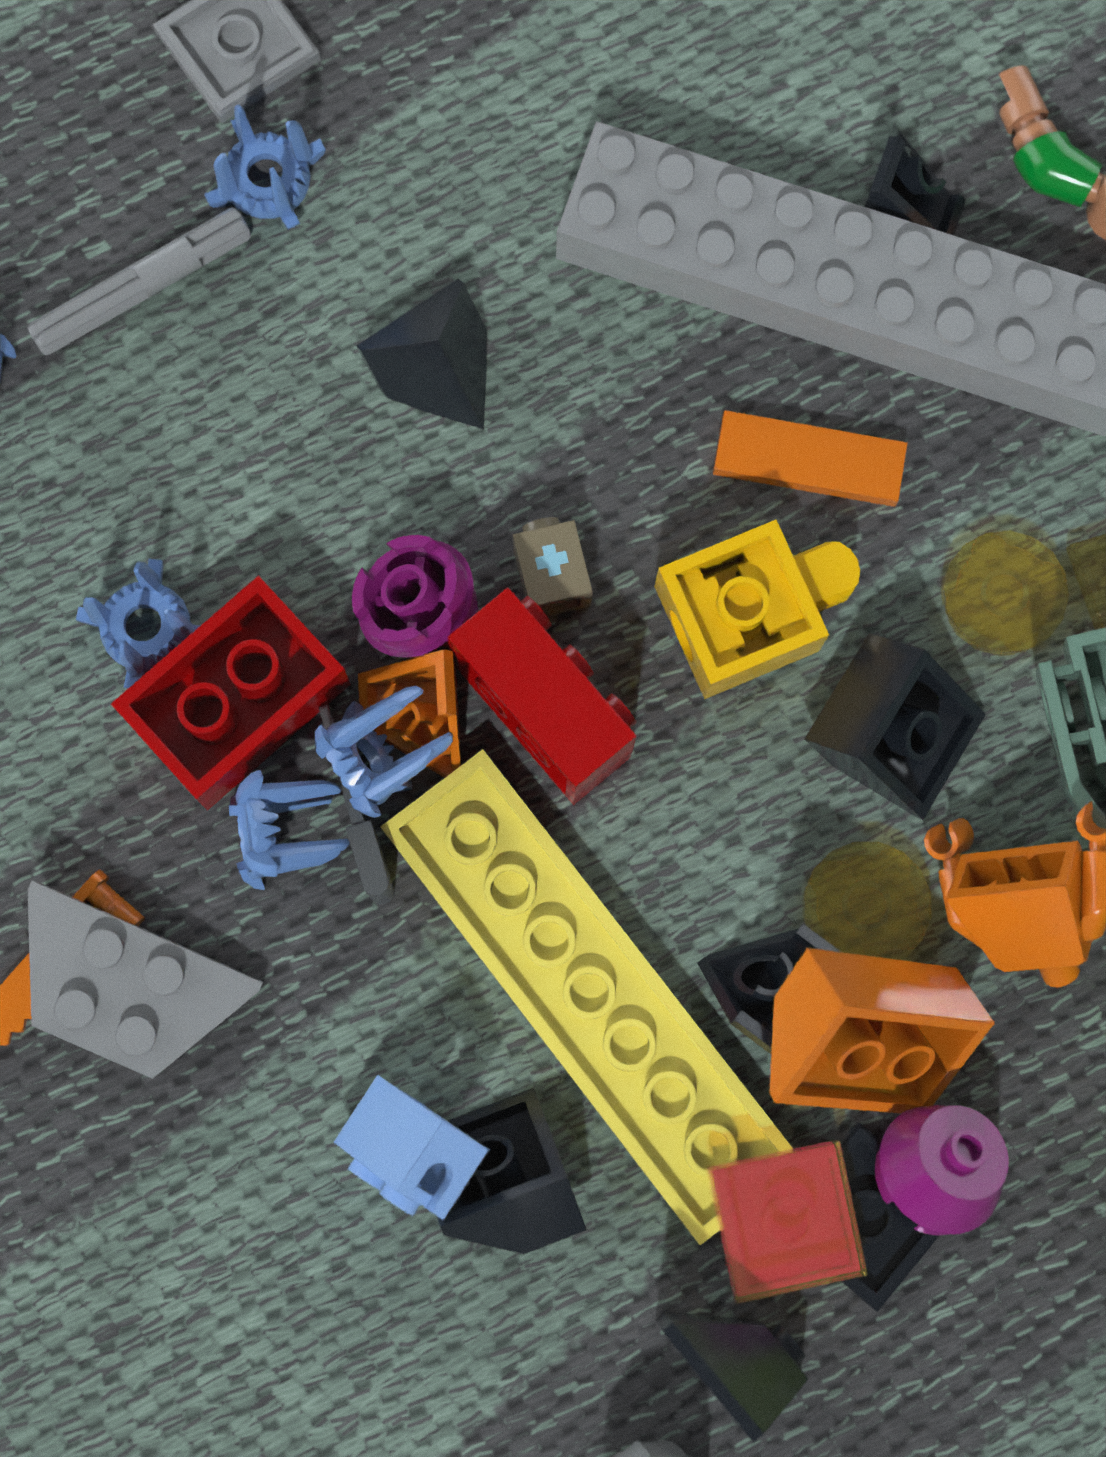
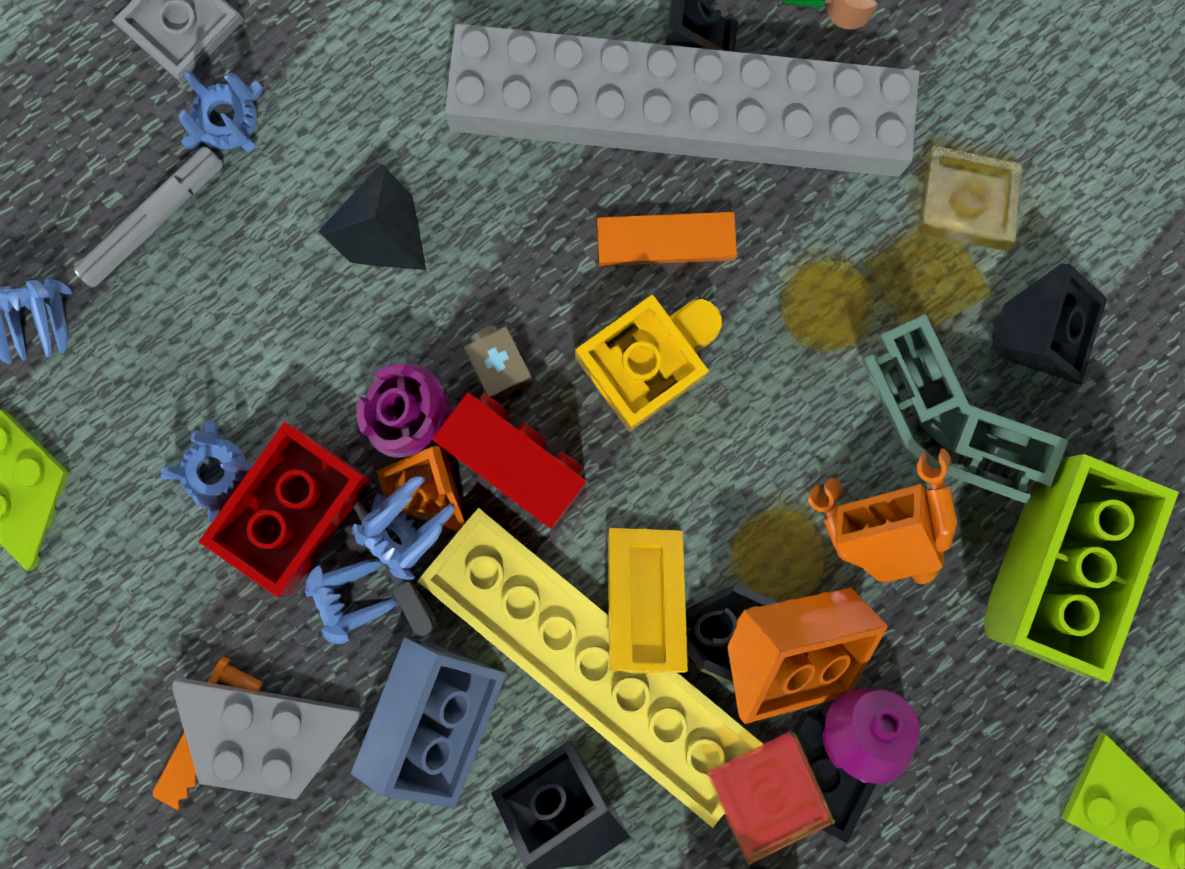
camera: 15 degrees left, 5 degrees up
(351, 1013) = (427, 724): none -> sand blue slope
(408, 1150) = (490, 813): light blue brick -> none
(678, 922) = (646, 601): none -> yellow piece
(896, 723) = (770, 420): black slope -> none

